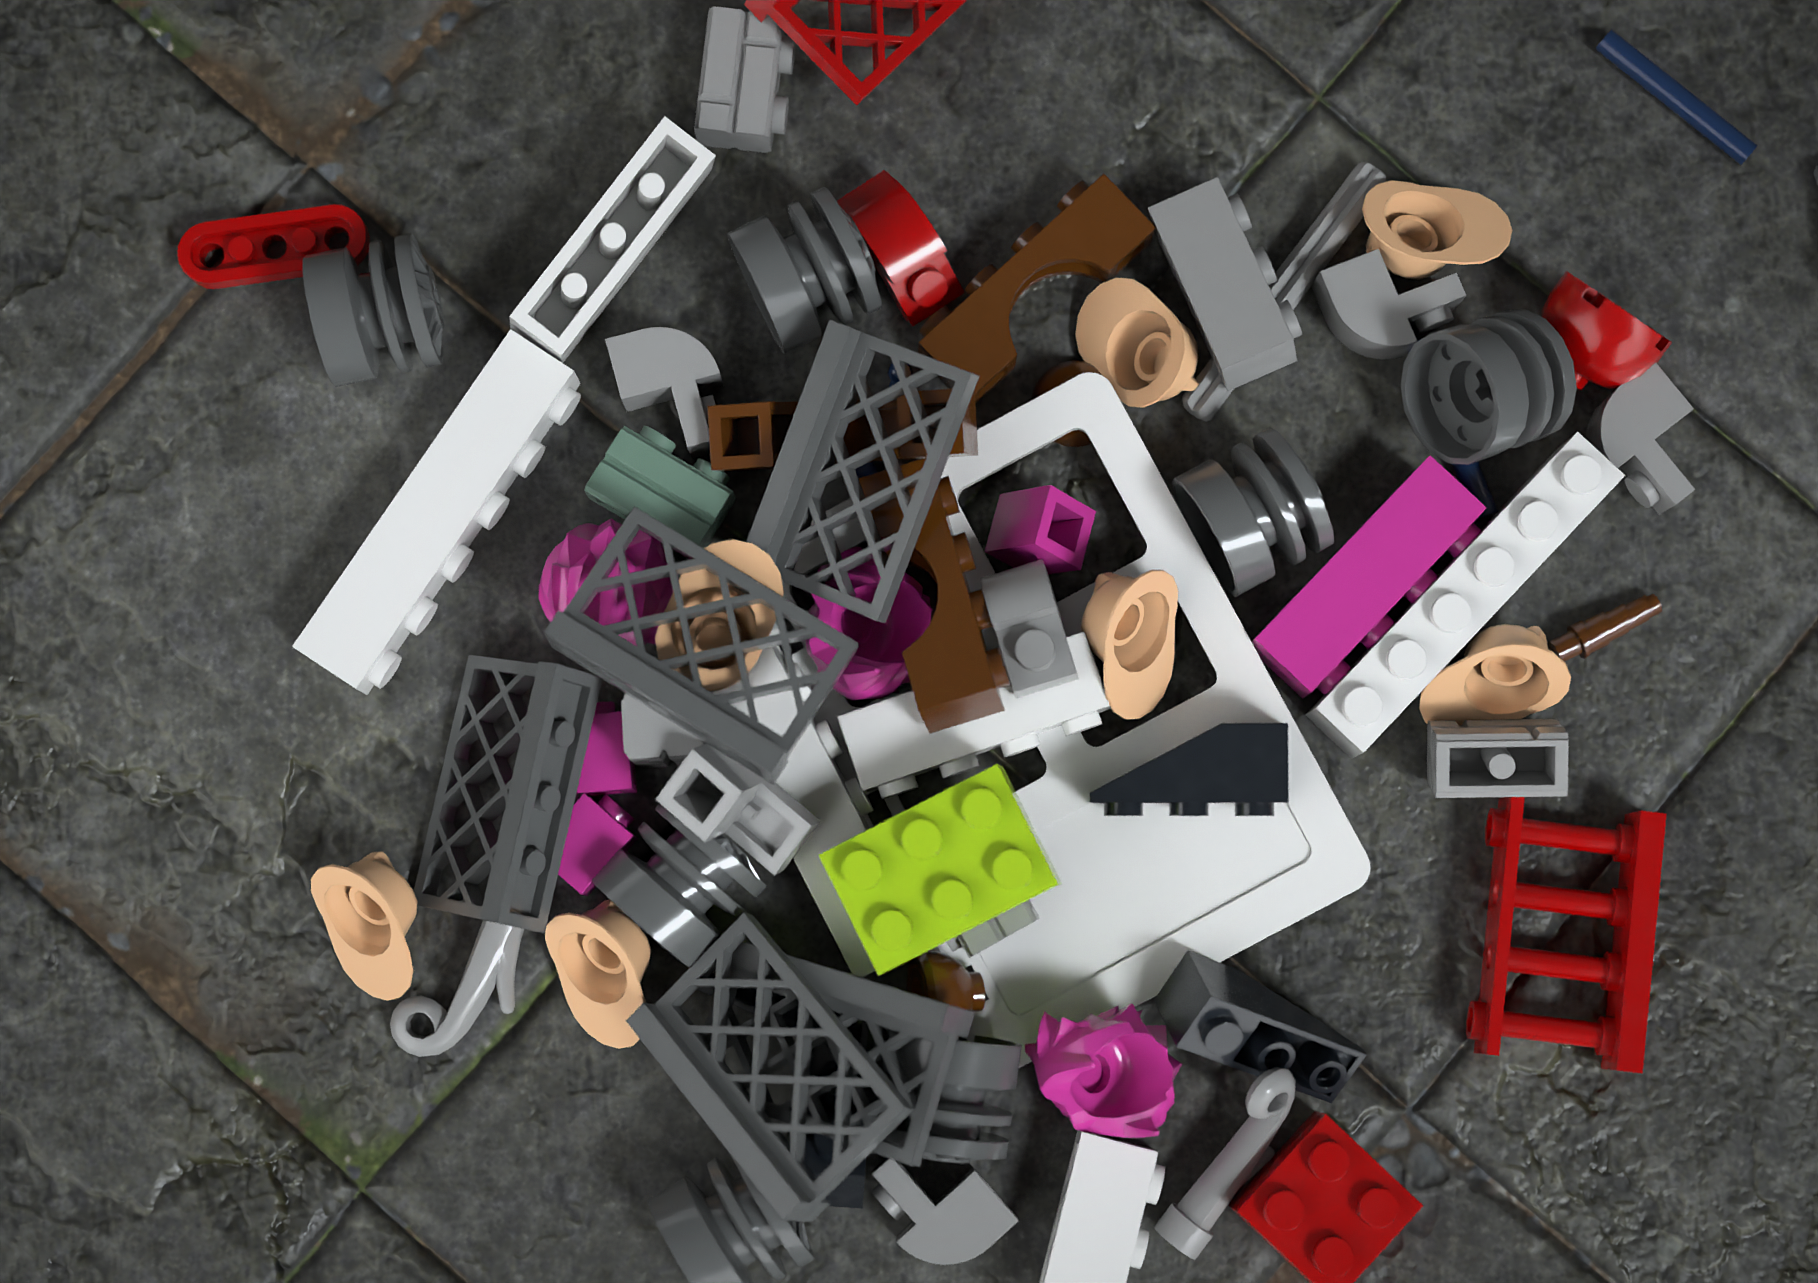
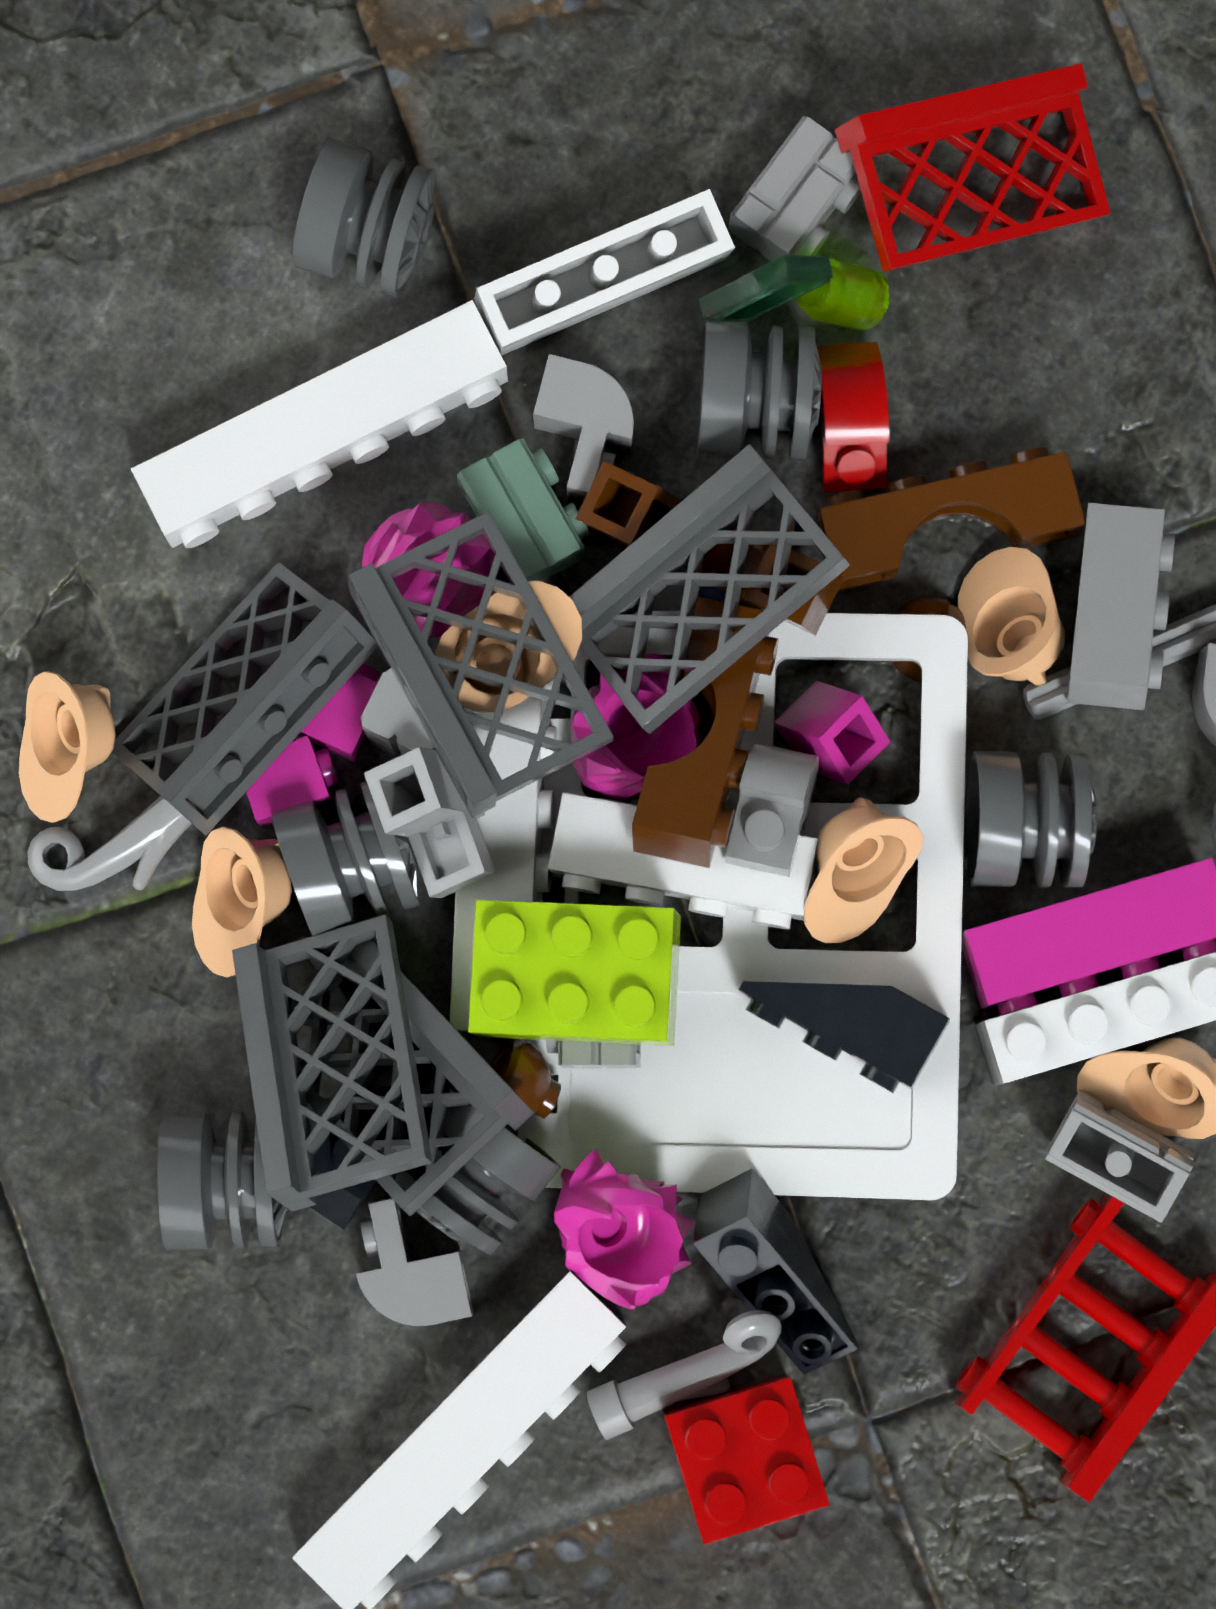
camera: 30 degrees right, 0 degrees up
(248, 239) = (292, 97): red plate -> none
(763, 176) = (766, 288): none -> clear green tile
(831, 144) = (851, 299): none -> clear neon green brick

